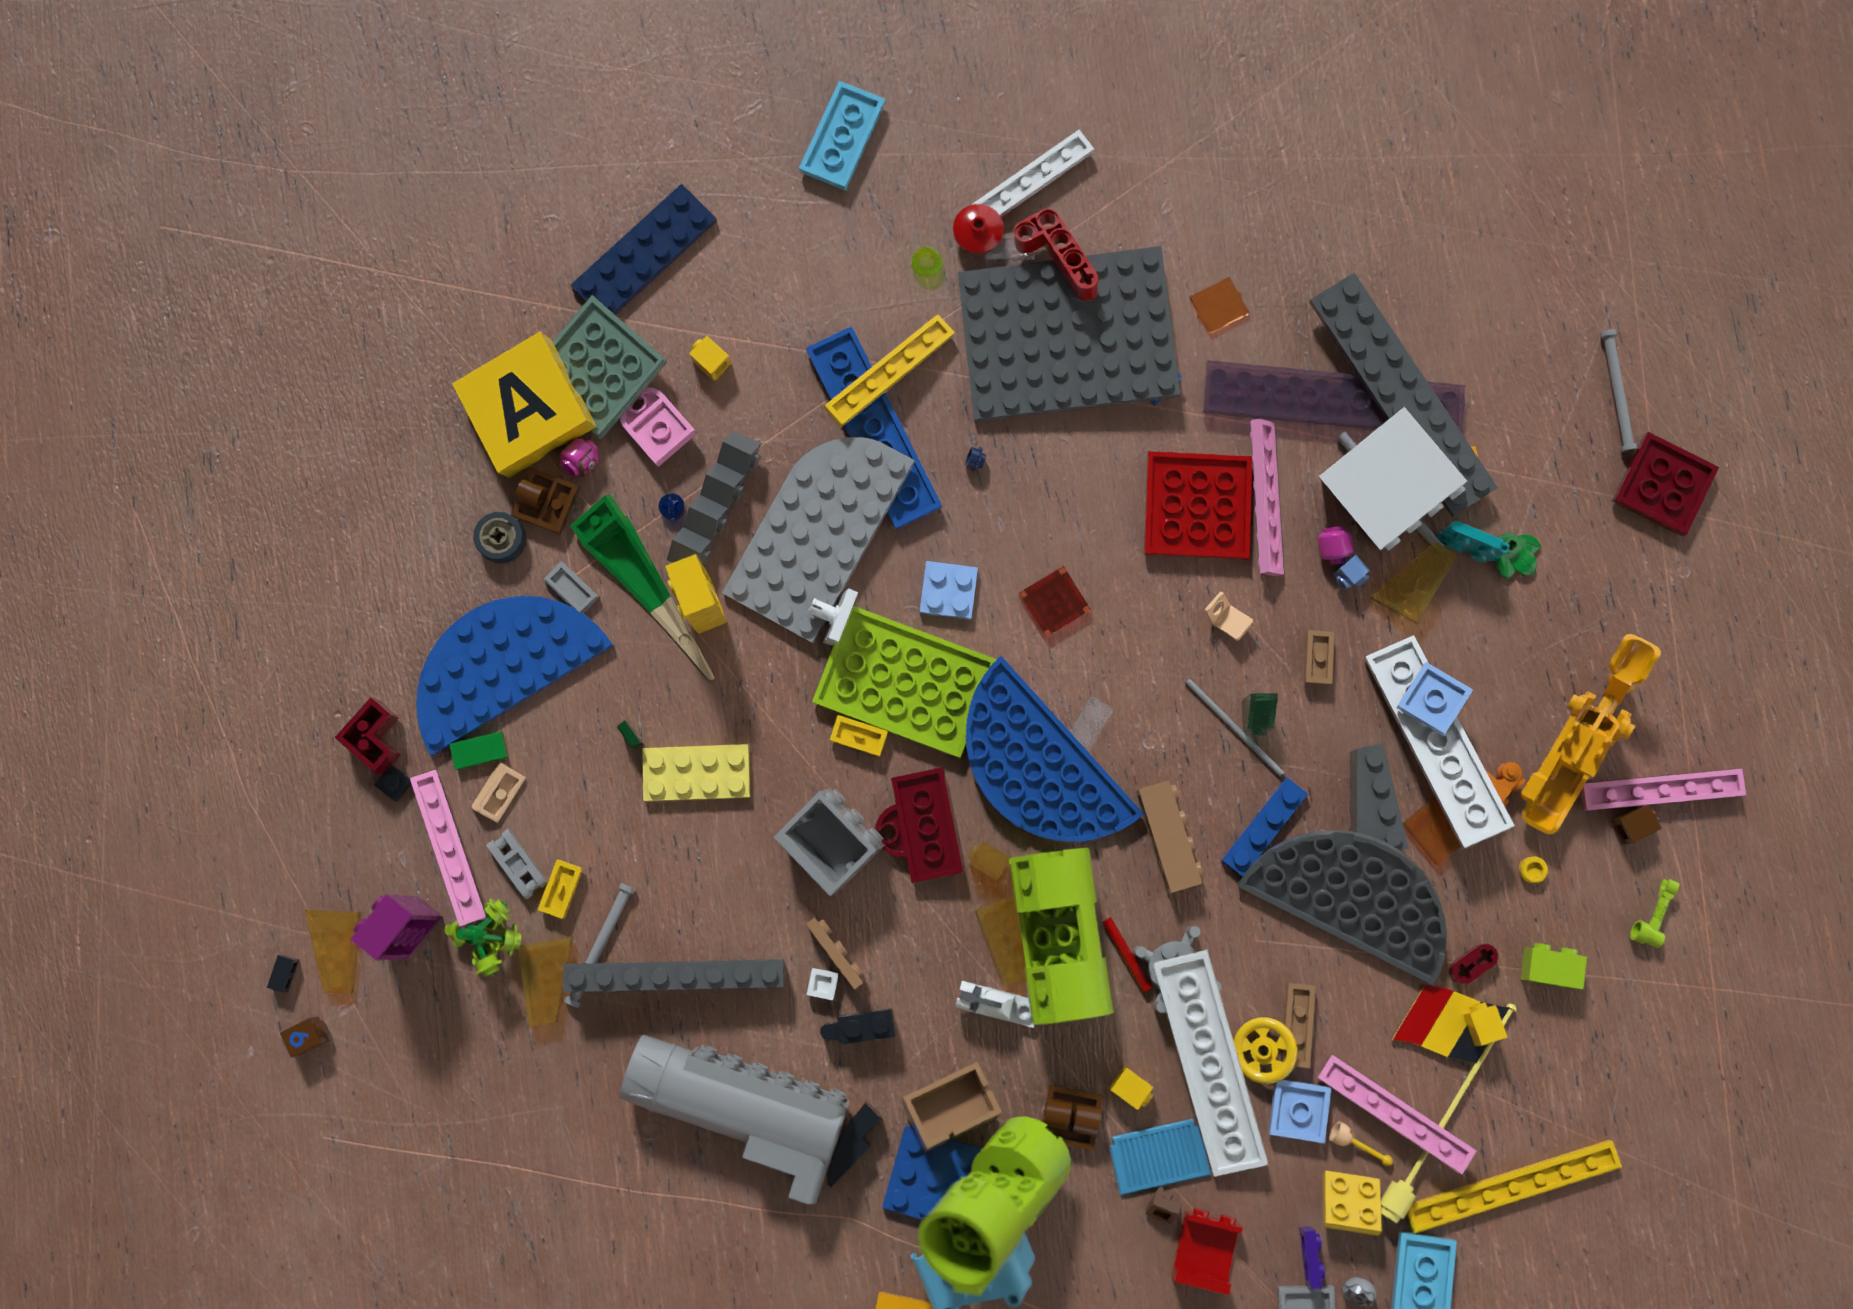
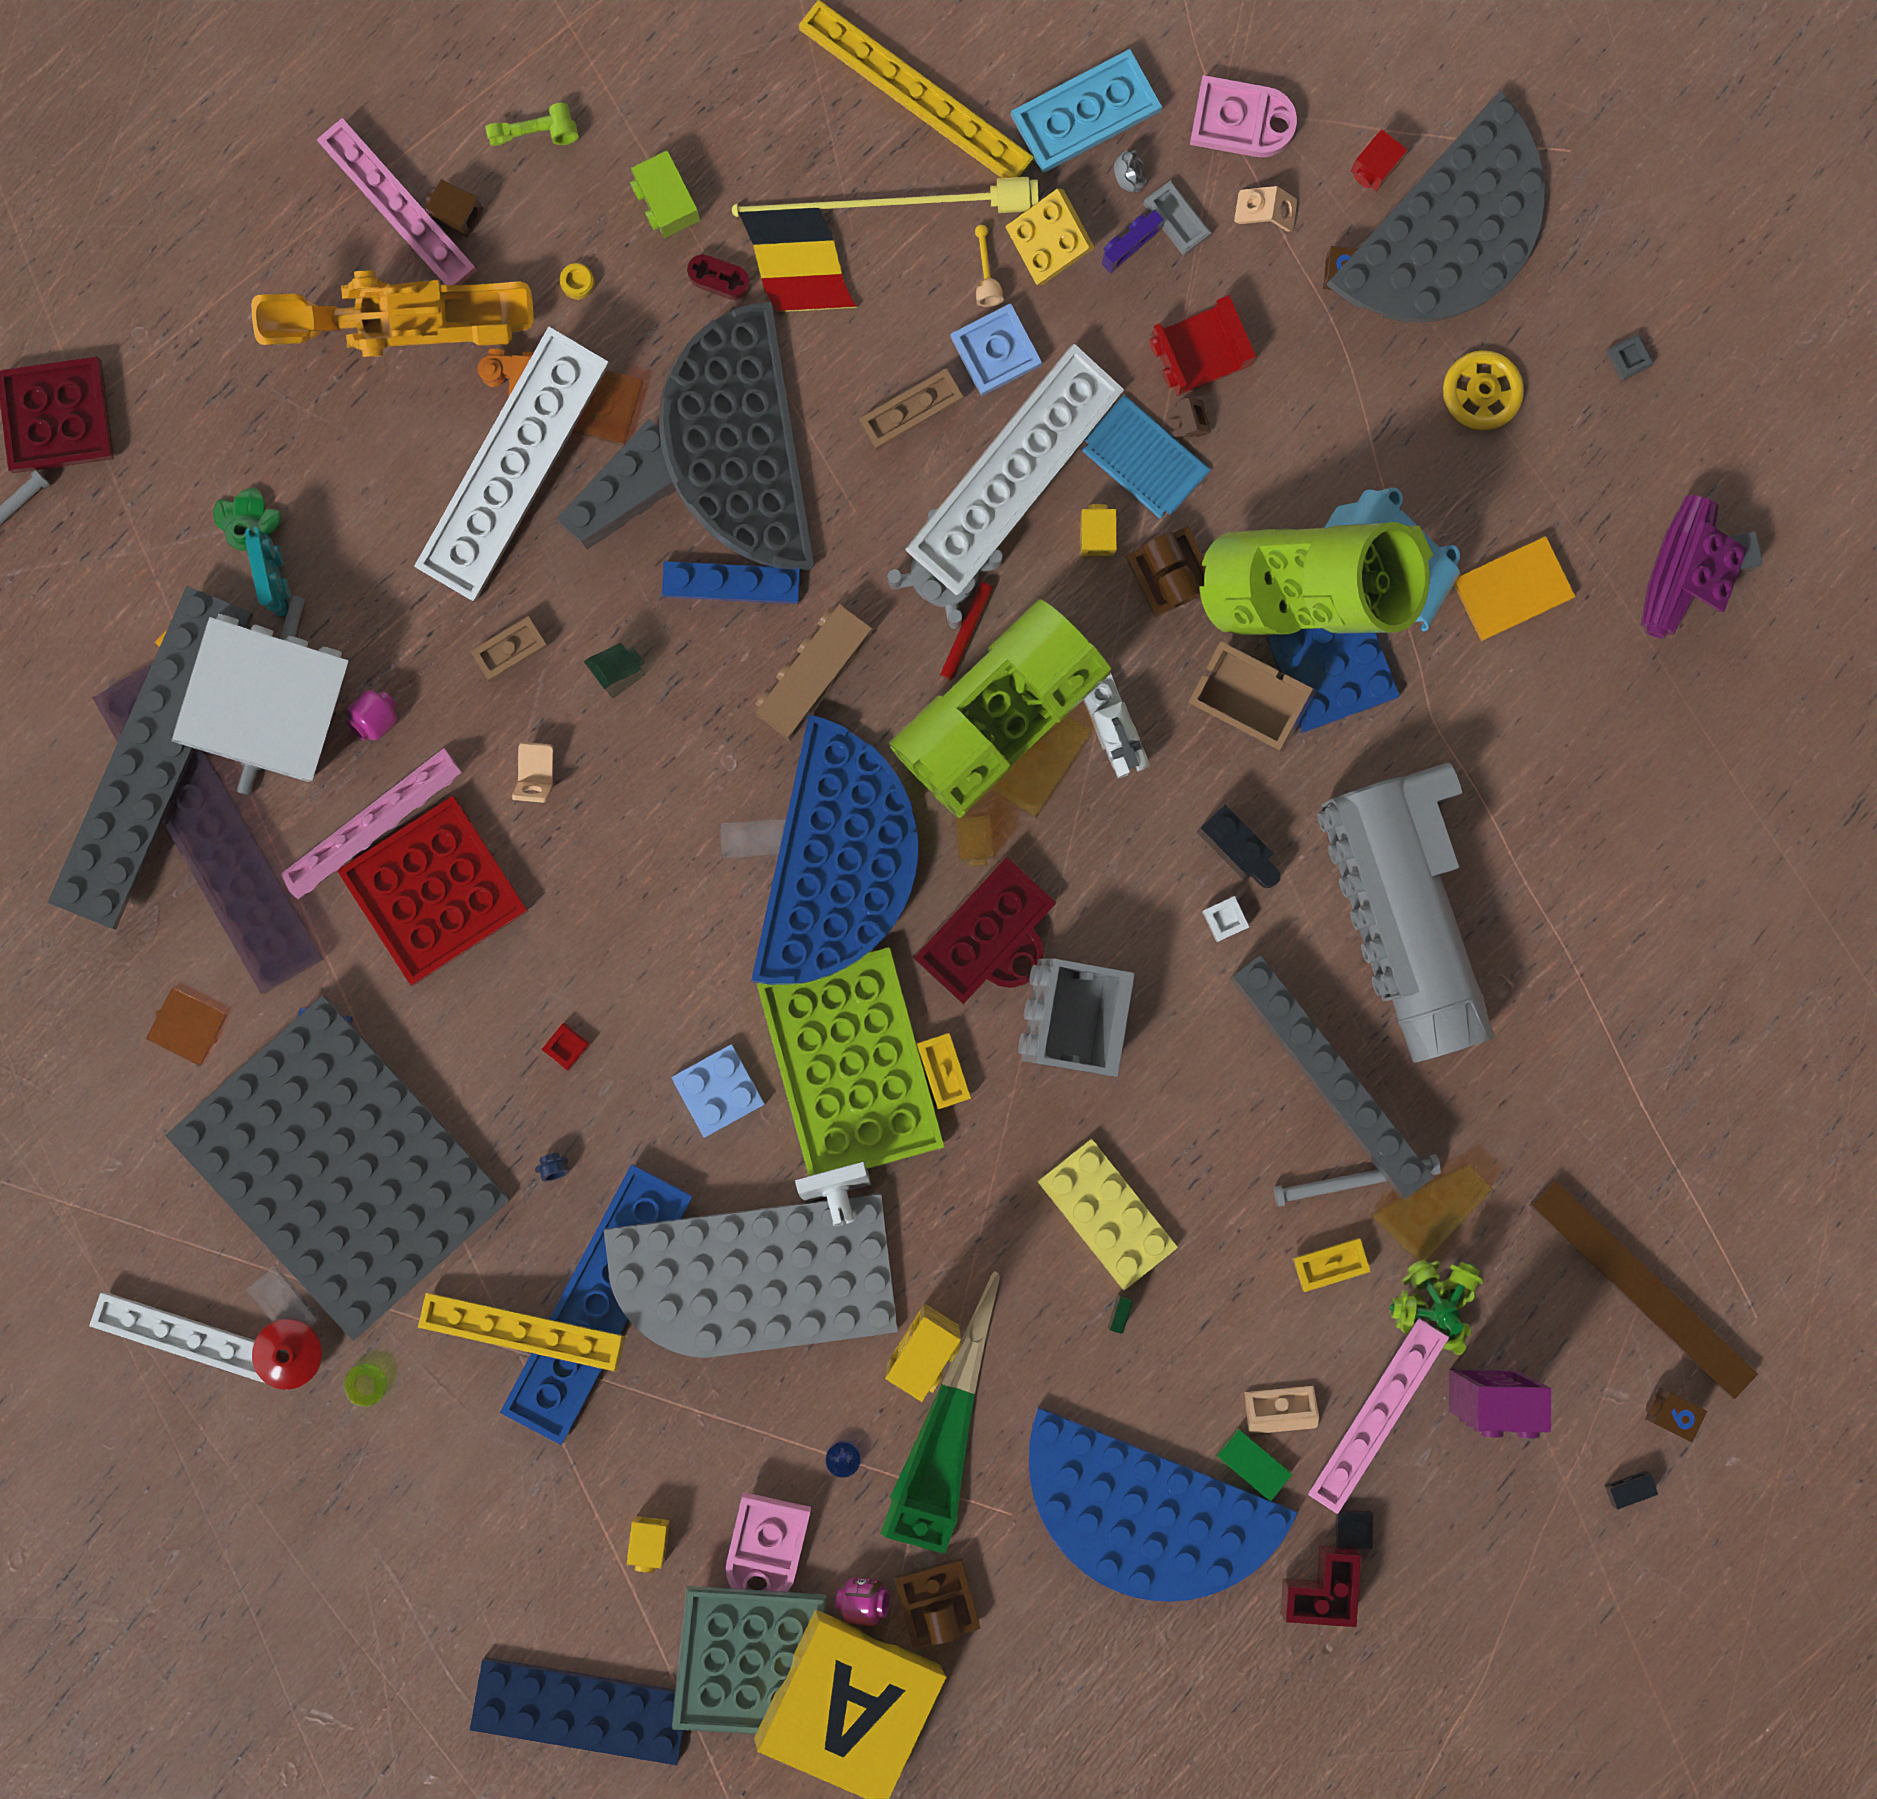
camera: 130 degrees left, 5 degrees up
(333, 948) = (1564, 1456): clear yellow wing -> none
(395, 1077) = (1643, 1289): none -> reddish brown tile
(510, 545) = (1013, 1640): wheel -> none
(517, 864) = (1339, 1330): light grey plate -> none
(571, 588) = (1010, 1500): light grey tile -> none
(719, 492) = (804, 1414): dark grey brick -> none
(836, 952) = (1183, 928): medium nougat plate -> none
(842, 135) = (283, 1589): medium azure plate -> none
(853, 1143) = (1358, 771): black slope -> none
(1043, 518) = (566, 1046): none -> red tile
(1054, 601) = (648, 969): clear red tile -> none
(1062, 256) = (255, 1234): red beam -> none
(1235, 728) = (637, 744): light grey axle -> none
(1286, 1041) = (938, 409): yellow plate -> none
(1352, 573) = (391, 676): medium blue plate -> none
(1396, 1114) = (929, 252): bright pink plate -> none
(1417, 583) = (354, 601): clear yellow wing -> none
(1434, 698) = (470, 497): light blue plate -> none
(1484, 1024) = (774, 224): yellow brick -> none

